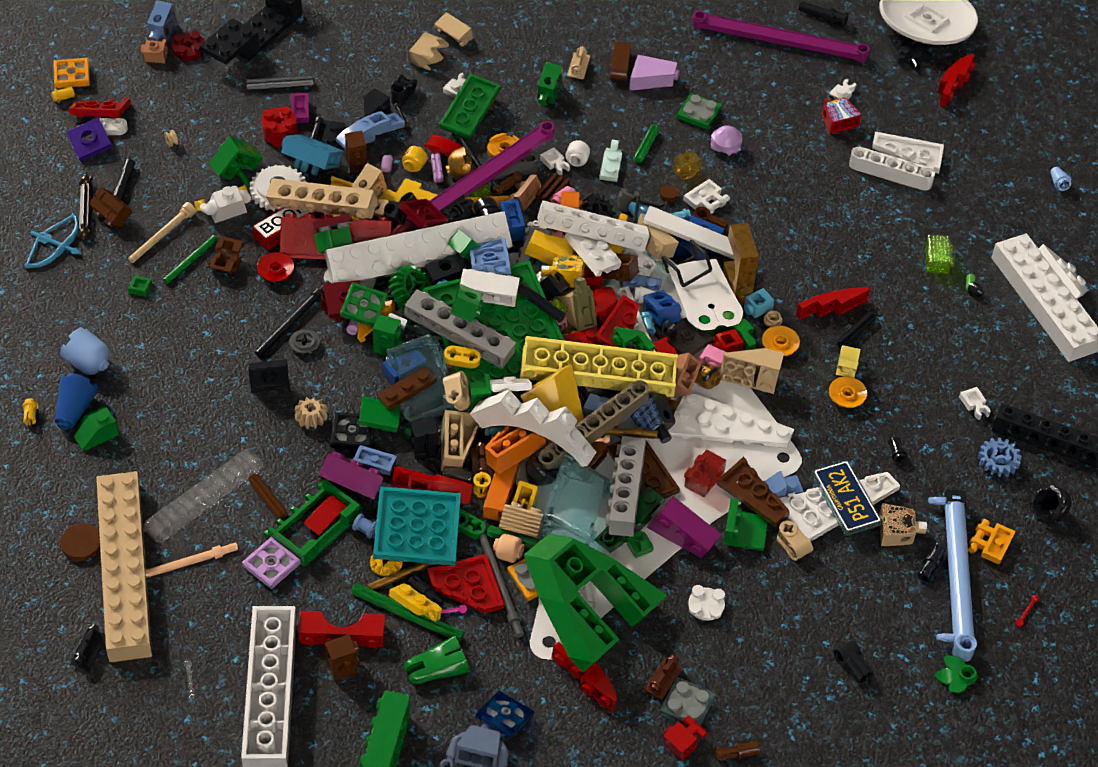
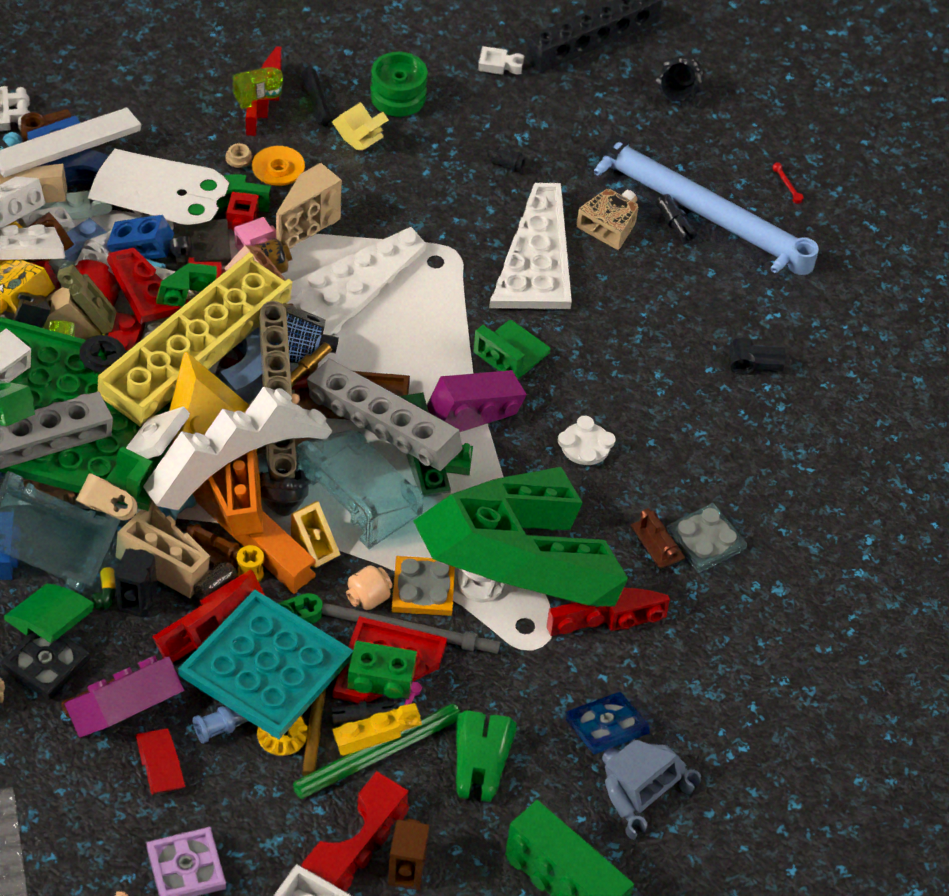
camera: 60 degrees left, 0 degrees up
(267, 496) = (71, 814): reddish brown axle -> none
(313, 548) = (125, 735): green hinge -> none
(376, 459) = (115, 657): medium blue plate -> none
(406, 388) = (41, 557): reddish brown plate -> none
(452, 581) = (382, 670): none -> green brick
(462, 356) = (58, 460): yellow beam -> none
(496, 532) = (339, 584): green axle -> none
(521, 520) = (343, 549): tan brick -> none
(541, 302) = (57, 334): black axle -> none
(549, 325) = (90, 350): none -> black gear
(682, 740) = (754, 567): red brick -> none
(693, 244) = (128, 194): black piece -> none
(702, 482) = (408, 339): clear red brick -> none
(737, 751) = (800, 526): reddish brown axle -> none
(742, 271) = (172, 107): pearl gold arch -> none
(746, 485) = (461, 313): reddish brown wing -> none
(758, 303) = (208, 157): medium azure brick -> none
(784, 485) = (479, 287): medium blue slope -> none
(793, 541) = (564, 315): tan piece -> none
(823, 293) = (257, 85): none -> clear neon green leg
(846, 498) = (545, 235): tile -> none
(847, 392) = (399, 152): light orange dish -> none
(899, 361) = (398, 84): none -> green wheel
(954, 674) = (828, 283): green plate -> none
(997, 544) = (690, 150): light orange plate -> none
(999, 457) = (586, 85): medium blue gear -> none

